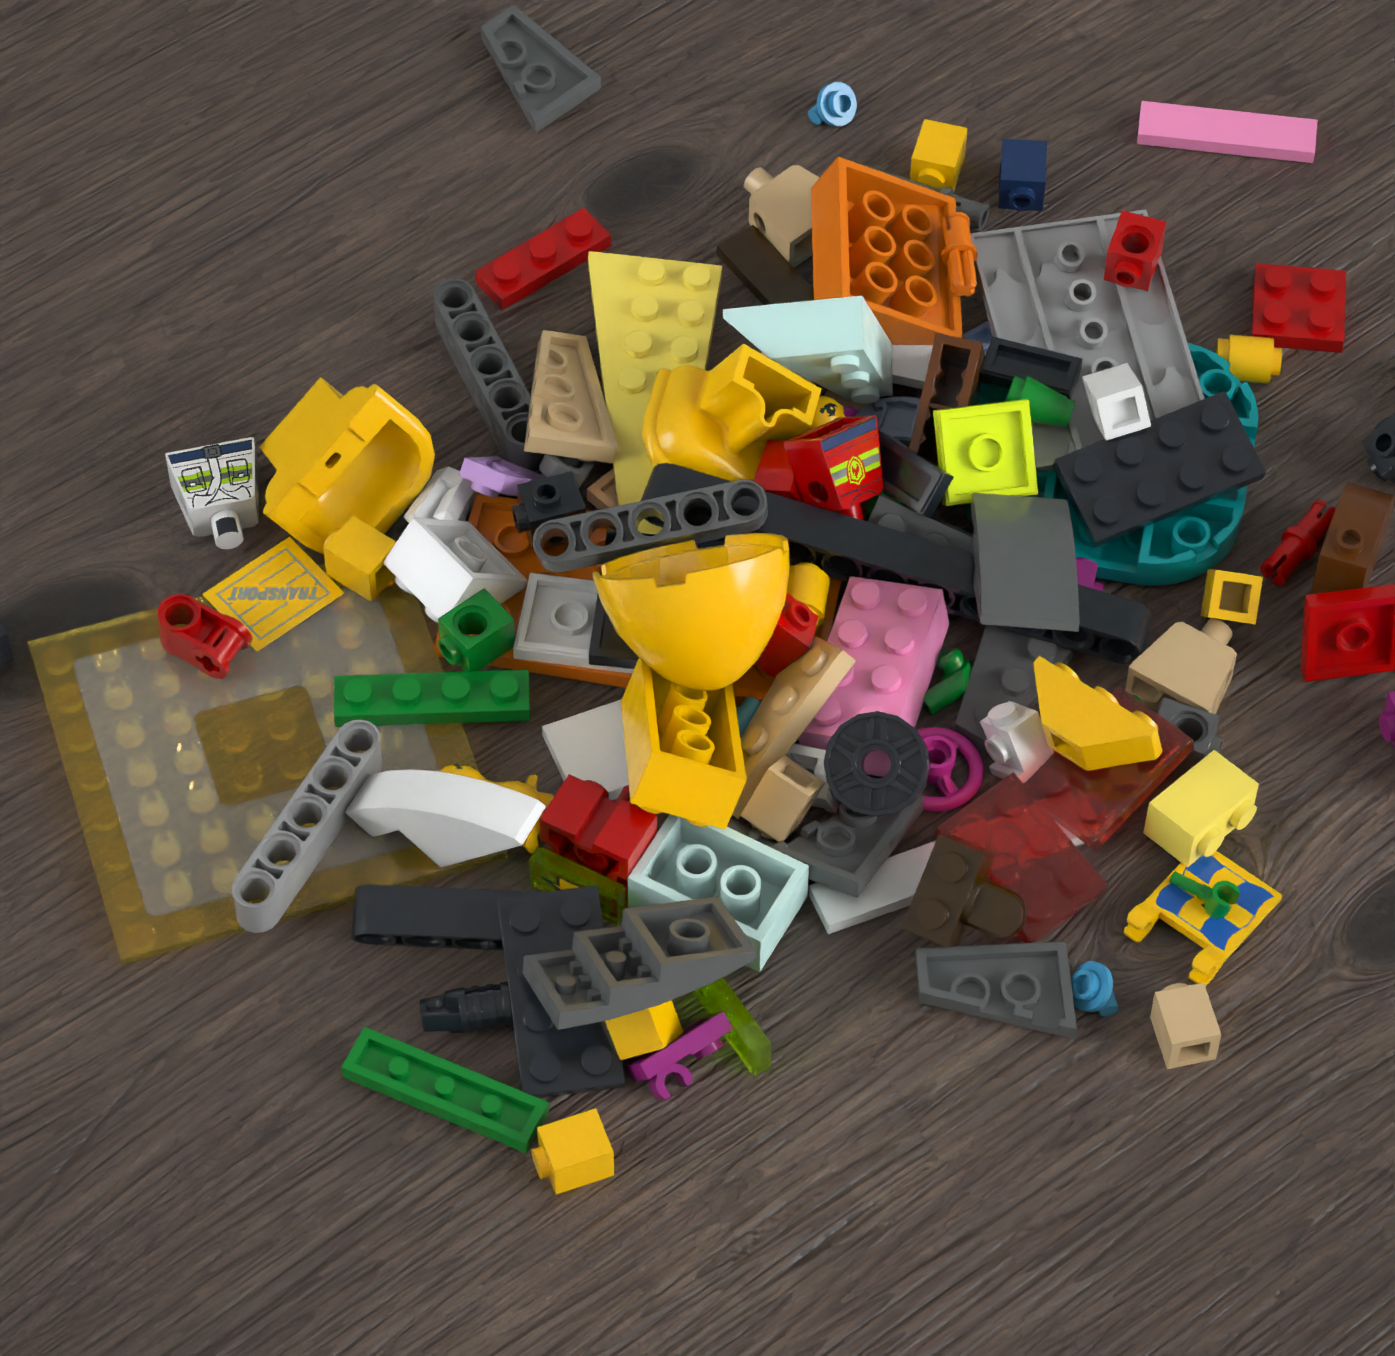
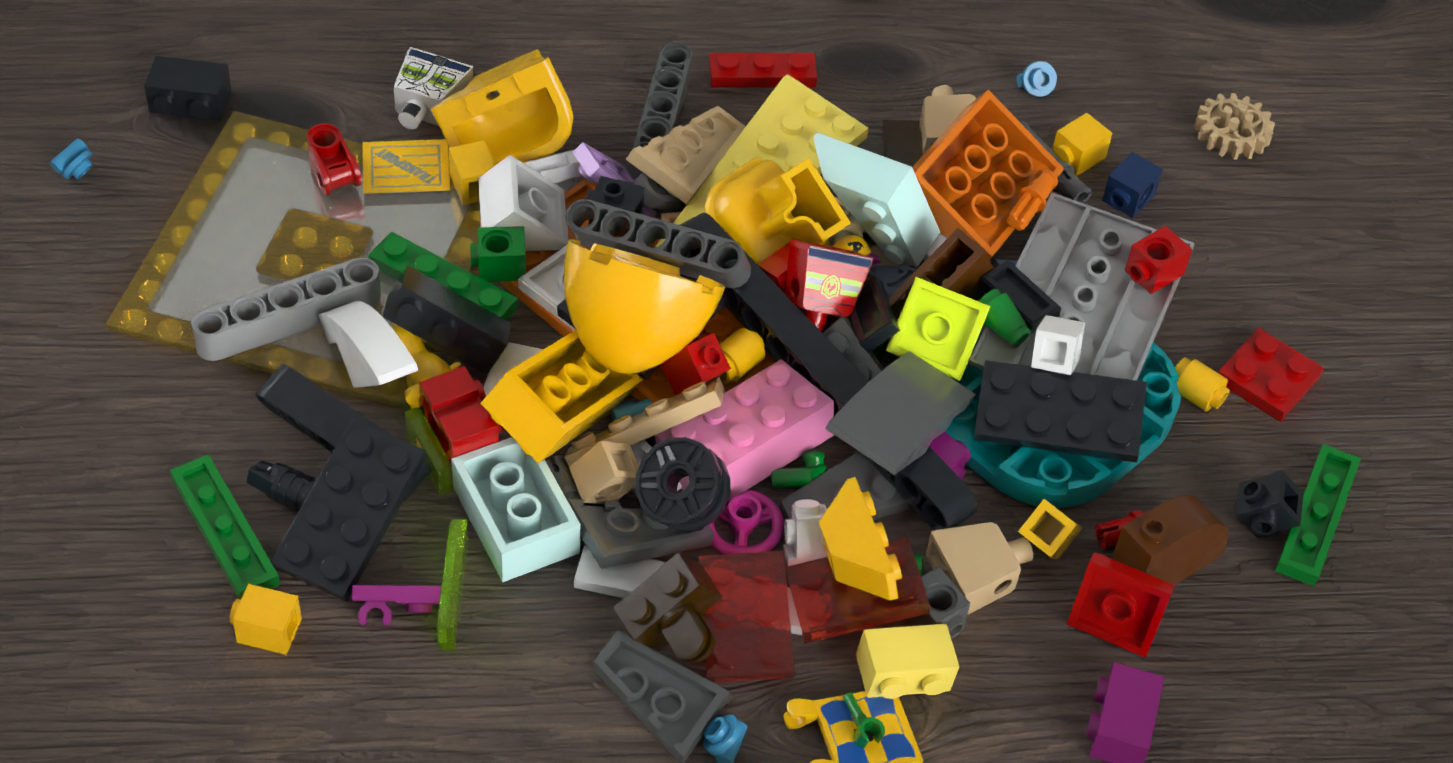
camera: 30 degrees right, 5 degrees down
(491, 737) = (447, 320): none -> black brick
(639, 965) = (397, 513): dark grey slope -> none
(644, 1030) = (384, 555): yellow brick -> none
(1084, 57) = (1225, 118): none -> tan gear
(1227, 131) = (1309, 237): bright pink tile -> none

